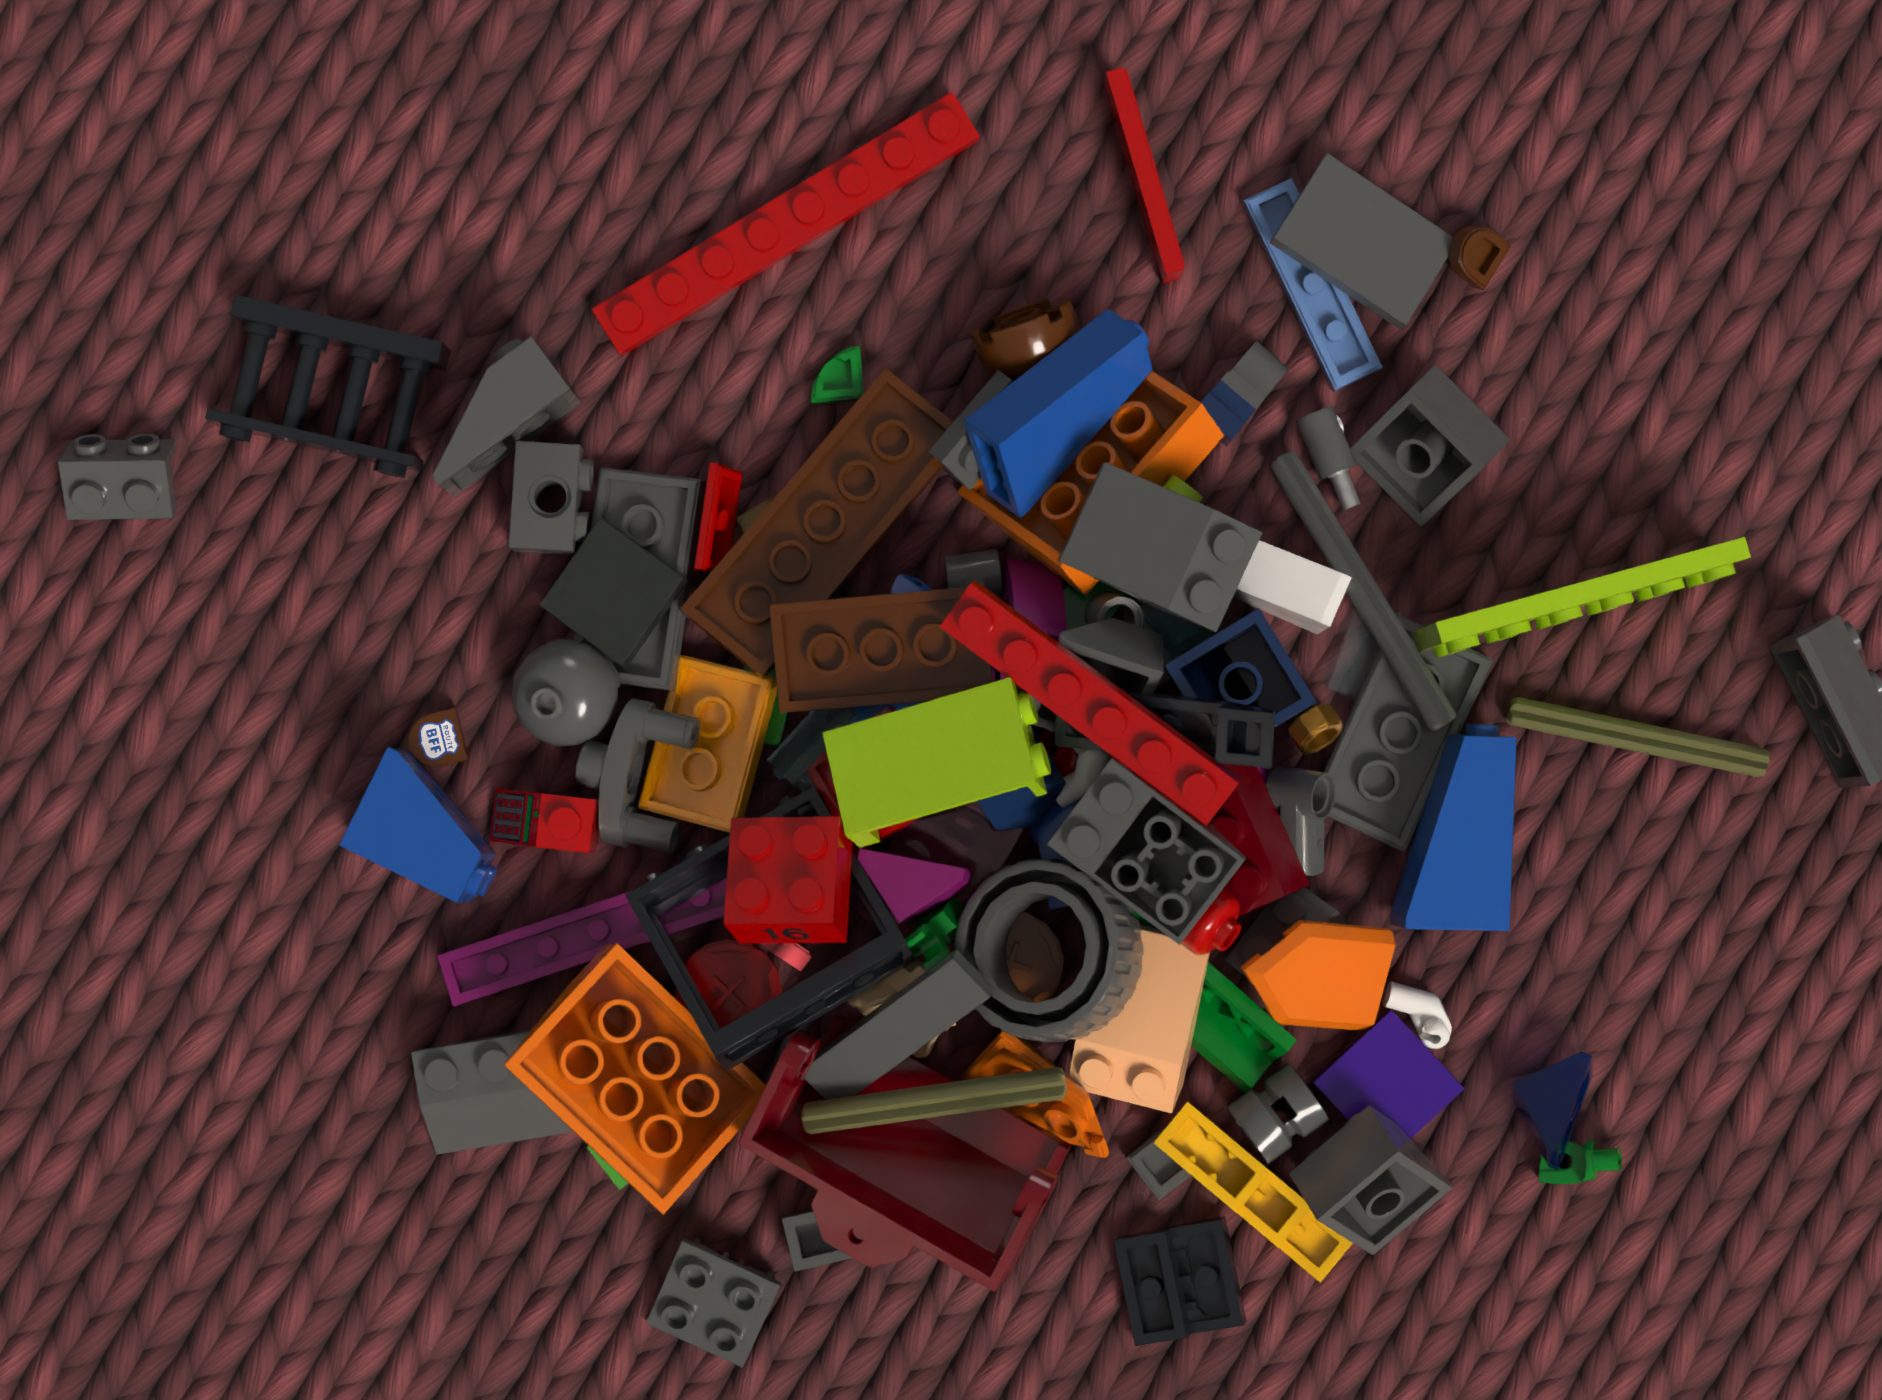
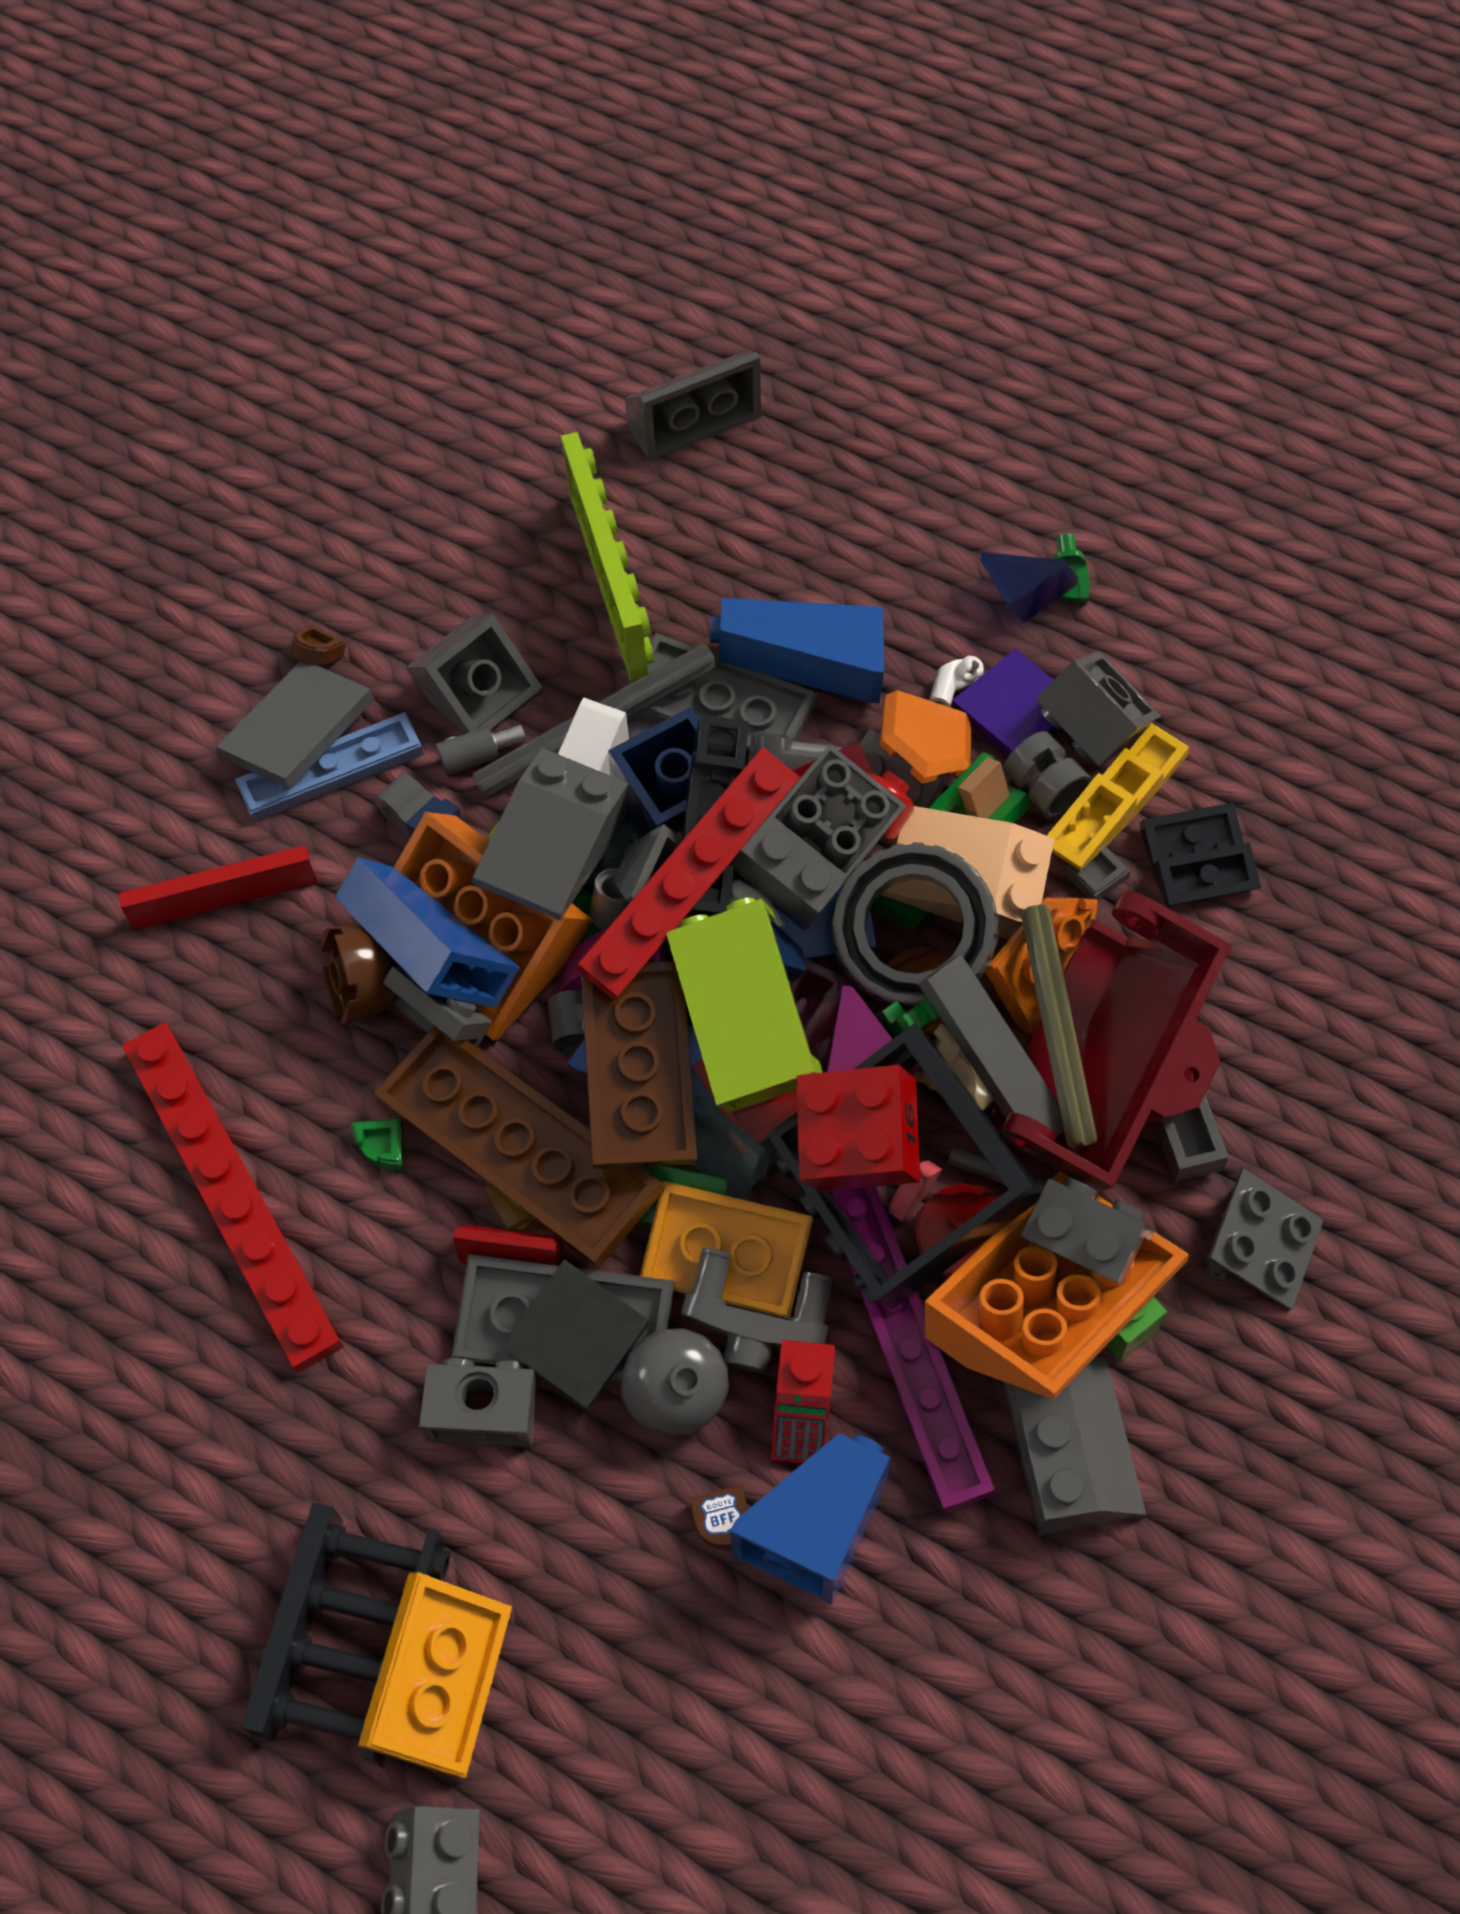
camera: 85 degrees left, 25 degrees down
(284, 472) = (435, 1676): none -> light orange tile
(513, 403) = (371, 1418): dark grey slope -> none
(687, 1113) = (1086, 1230): none -> dark grey bracket
(1247, 1038) = (984, 789): none -> medium nougat tile
(1638, 737) = (720, 539): olive axle -> none

